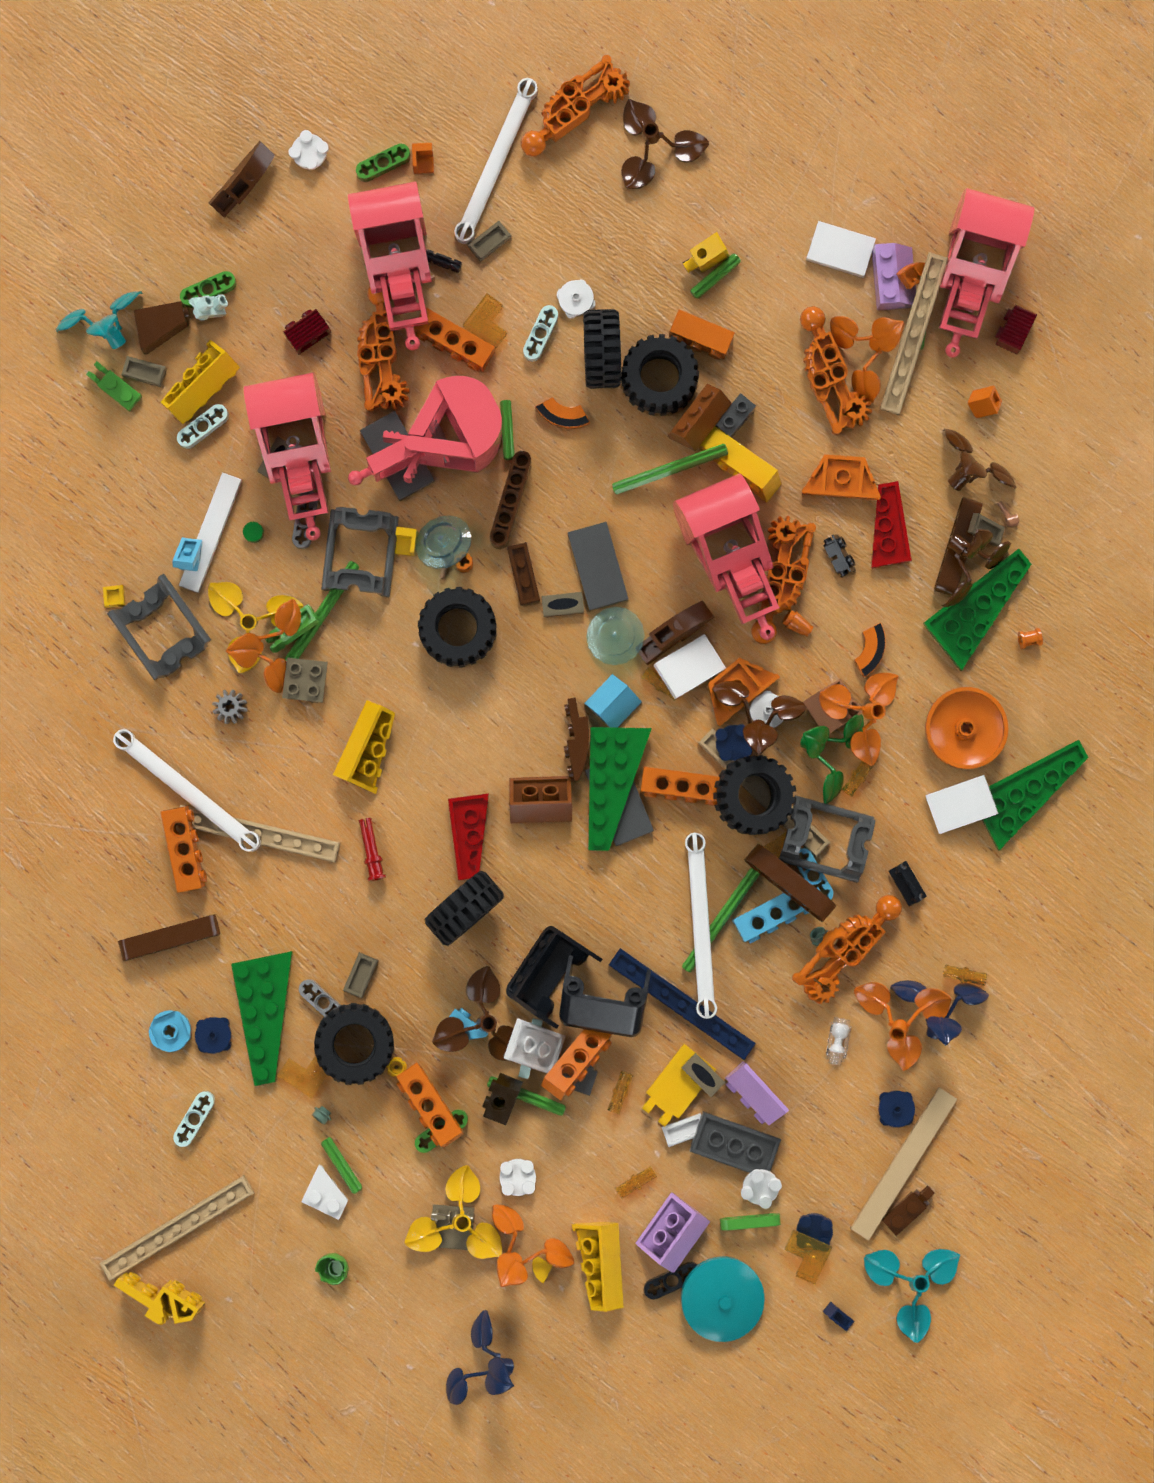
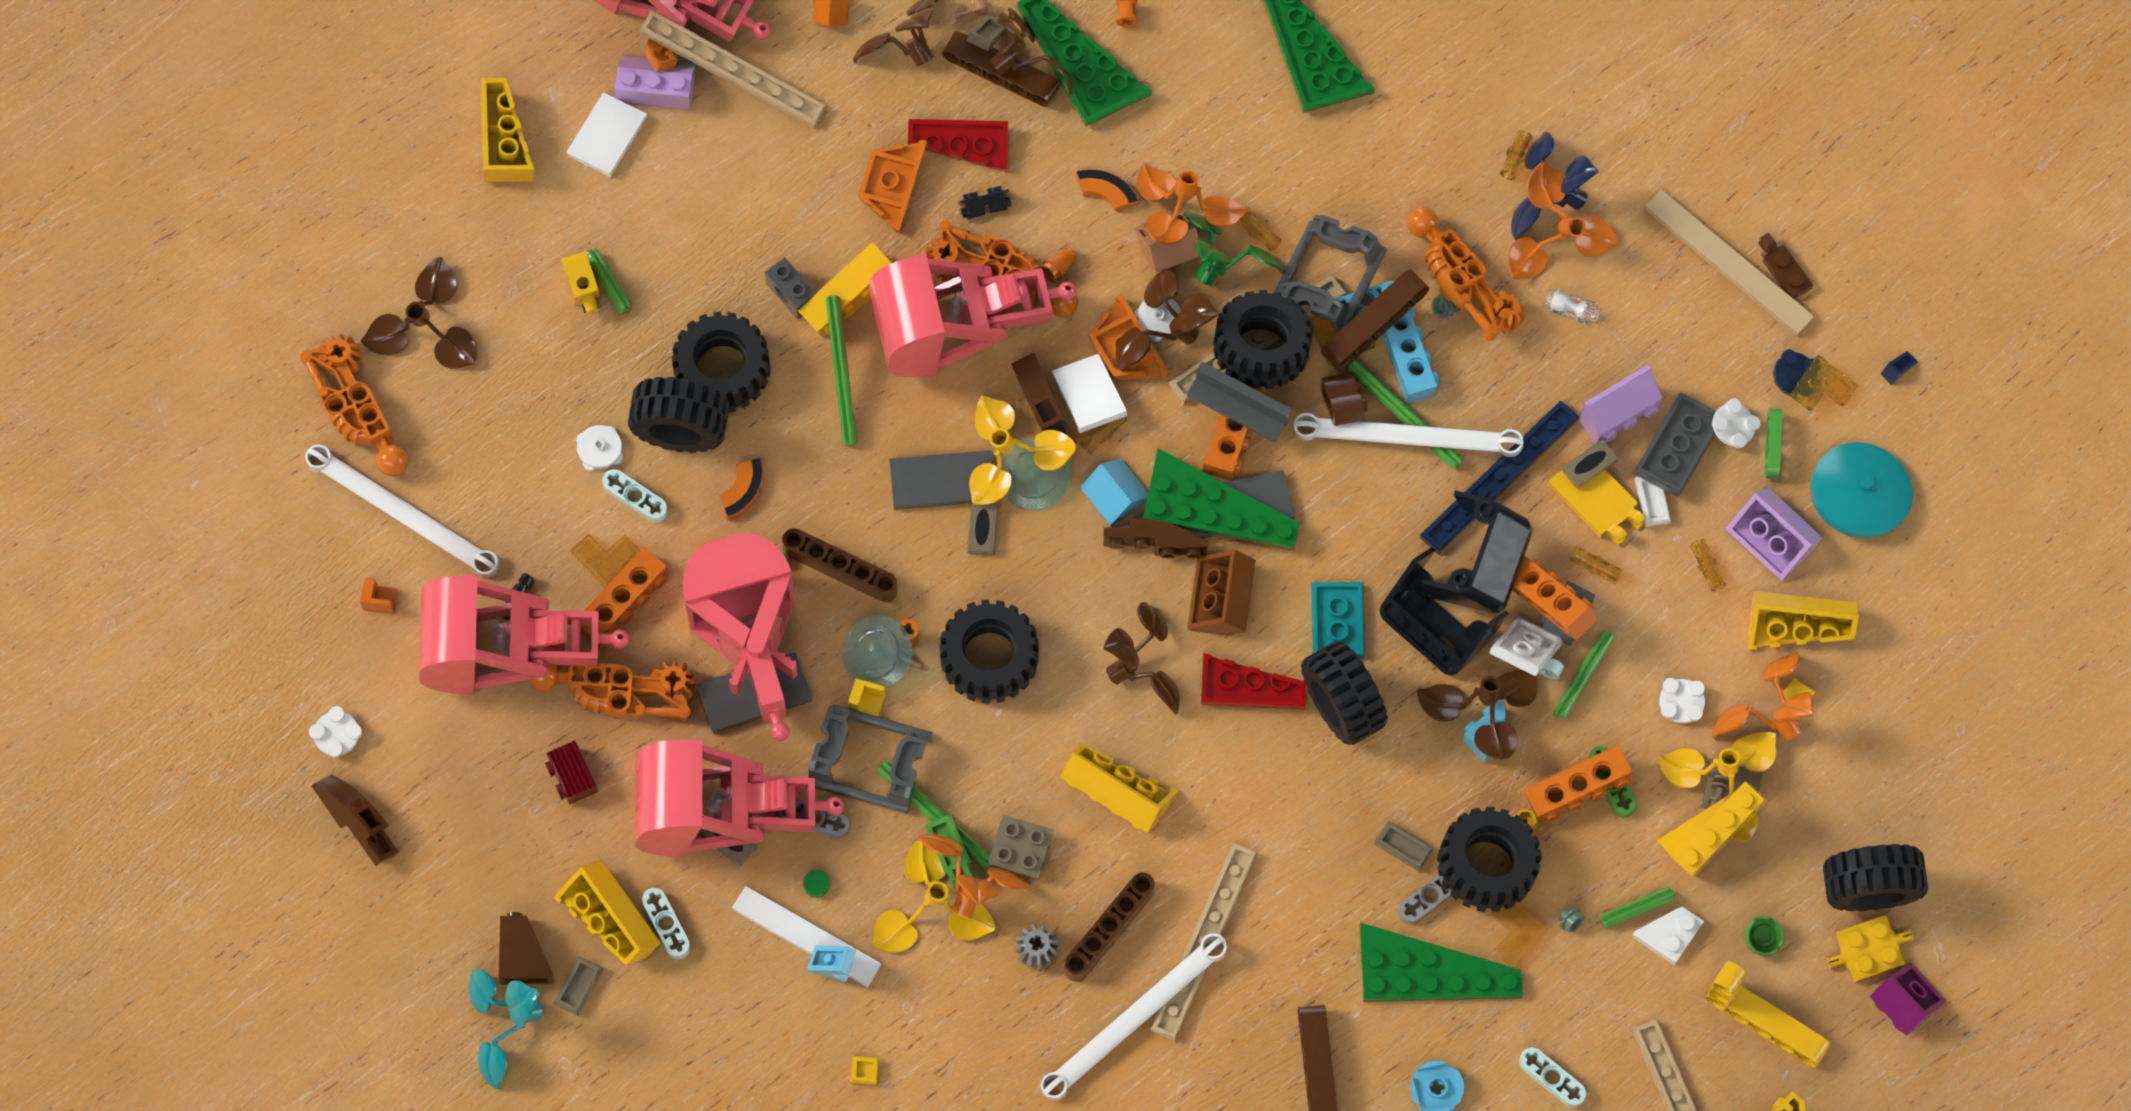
camera: 80 degrees left, 15 degrees down
(115, 387) = (590, 1025): bright green hinge -> none
(139, 611) = (948, 988): dark grey piece -> none
(178, 859) = (1168, 1037): orange brick -> none
(209, 281) = (491, 868): bright green beam -> none
(209, 306) = (514, 886): light aqua hips -> none
(213, 1035) = (1450, 1037): dark blue piece -> none
(244, 757) = (1111, 914): none -> reddish brown beam
(275, 1257) = (1765, 1018): none -> yellow beam
(301, 1390) = (1907, 999): none -> magenta slope
(339, 1354) = (1869, 948): none -> yellow plate
(372, 861) = (1263, 805): red pin -> none
(384, 154) = (383, 661): bright green beam -> none
(384, 1353) = (1875, 877): none -> black tyre
(404, 1211) = (1708, 832): none -> yellow wedge
(462, 731) = (1122, 646): none -> reddish brown plant
(489, 241) = (503, 536): dark tan tile -> none
(499, 1368) = (1916, 744): dark blue plant -> none
(506, 1088) = (1597, 699): dark brown brick -> none
(523, 574) = (935, 568): reddish brown tile -> none
(537, 894) = (1338, 615): none -> teal tile
(600, 600) = (992, 423): none -> yellow plant
(655, 1281) = (1830, 564): black beam -> none
(697, 785) = (1239, 402): none -> dark grey panel
(700, 417) = (784, 325): dark orange slope -> none
(701, 334) = (679, 308): orange brick -> none
(720, 868) = (1343, 399): none -> reddish brown brick
(731, 743) = (1188, 355): dark blue piece -> none
(817, 167) = (503, 144): none -> yellow wedge
(819, 366) = (747, 182): orange arm -> none
(884, 337) = (730, 88): orange plant -> none
(896, 1108) = (1662, 259): dark blue piece -> none
(907, 883) = (1396, 198): black hinge -> none
(939, 1264) = (1857, 244): teal plant -> none
(961, 804) = (1312, 119): white tile -> none
(966, 728) = (1222, 97): orange dish -> none

